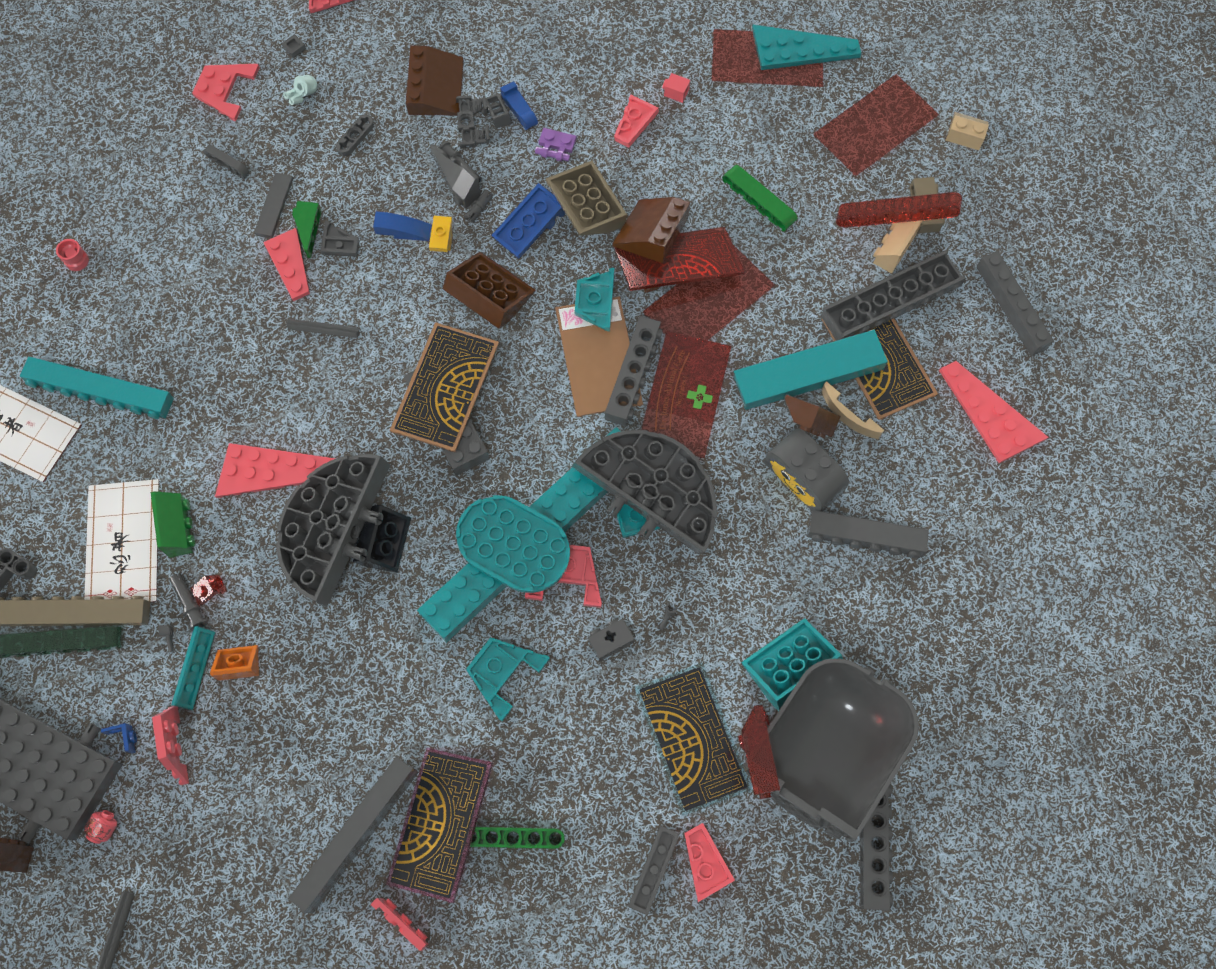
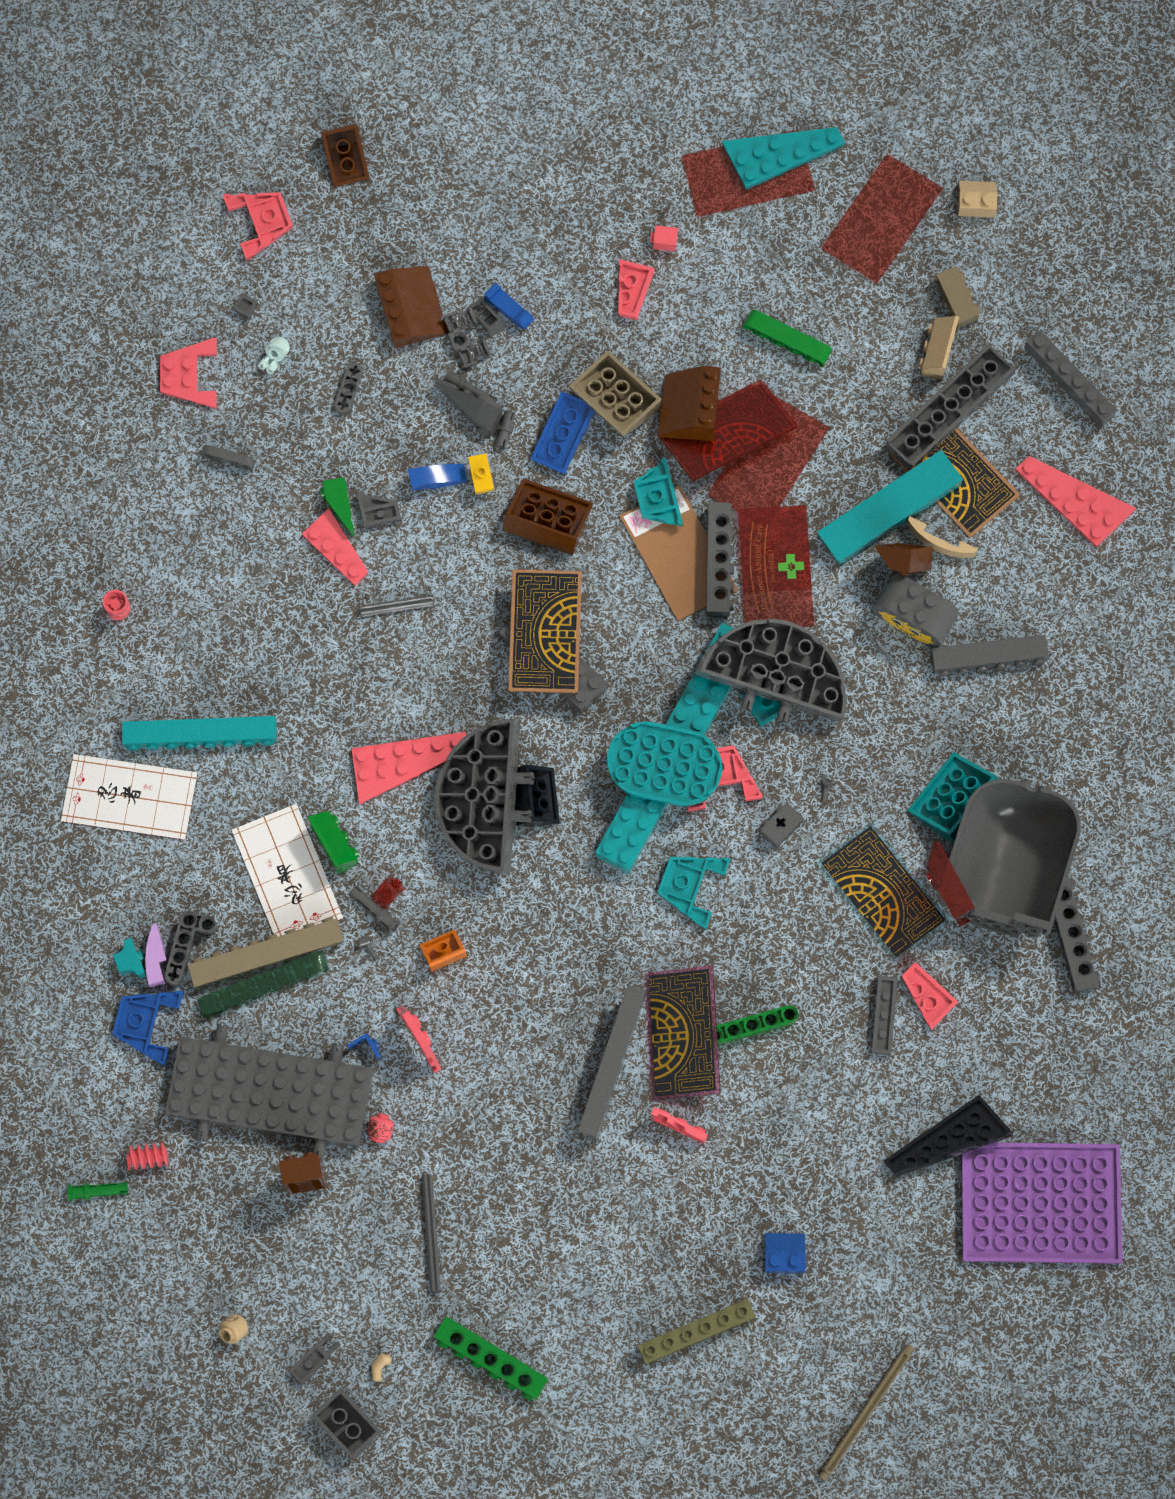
camera: 15 degrees left, 5 degrees up
(193, 668) = (405, 967): teal tile -> none
(273, 205) = (295, 490): dark grey tile -> none
(557, 140) = (560, 333): medium lavender plate -> none
(899, 210) = (931, 317): clear red beam -> none

